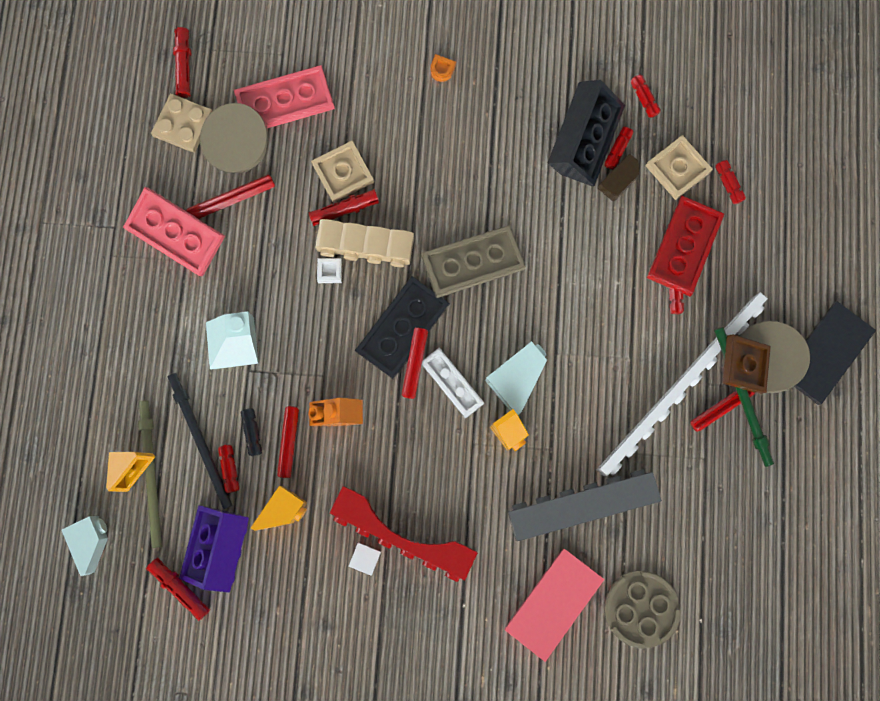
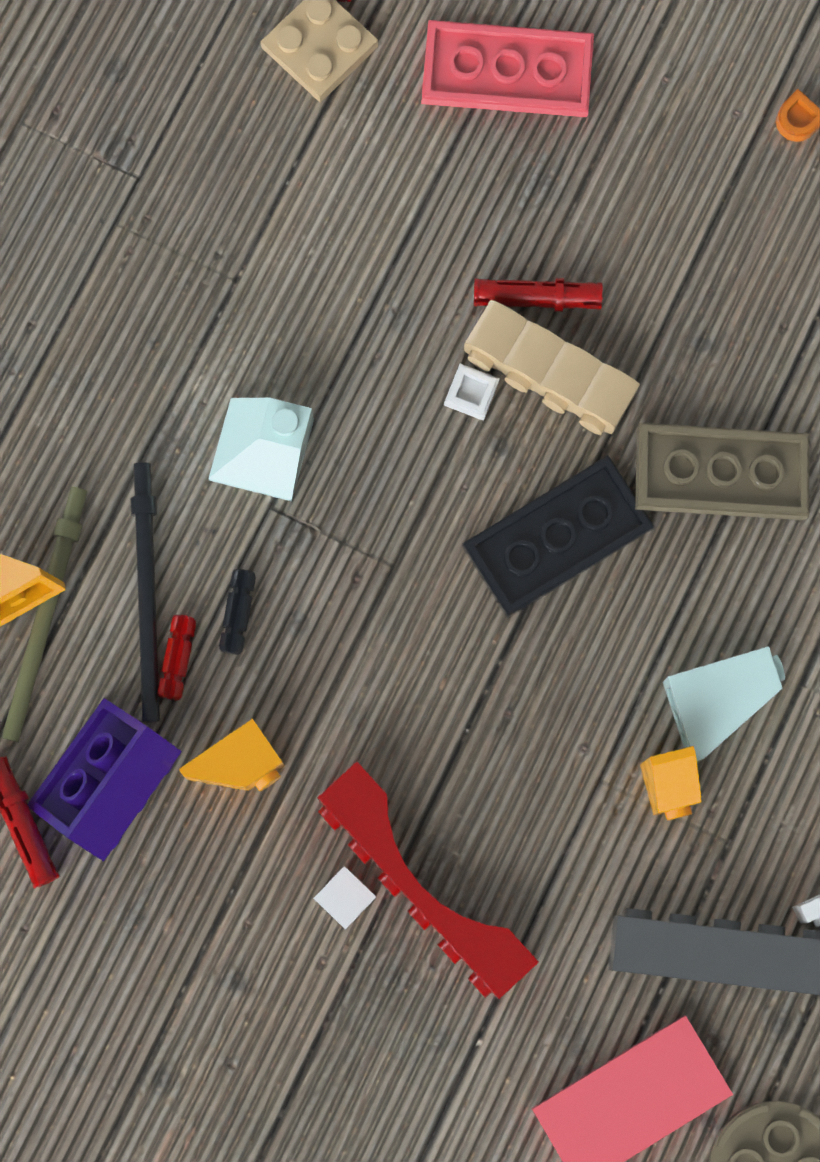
camera: 20 degrees right, 0 degrees up
(174, 231) = (236, 224): coral tile -> none
(231, 197) = (352, 203): red axle -> none
(234, 138) = (398, 104): dark tan tile -> none
(288, 442) = (291, 652): red axle -> none
(336, 412) = (391, 635): orange slope -> none
(342, 171) = (559, 231): tan plate -> none
(414, 363) = (555, 604): red axle -> none
(452, 383) = (605, 663): white tile -> none

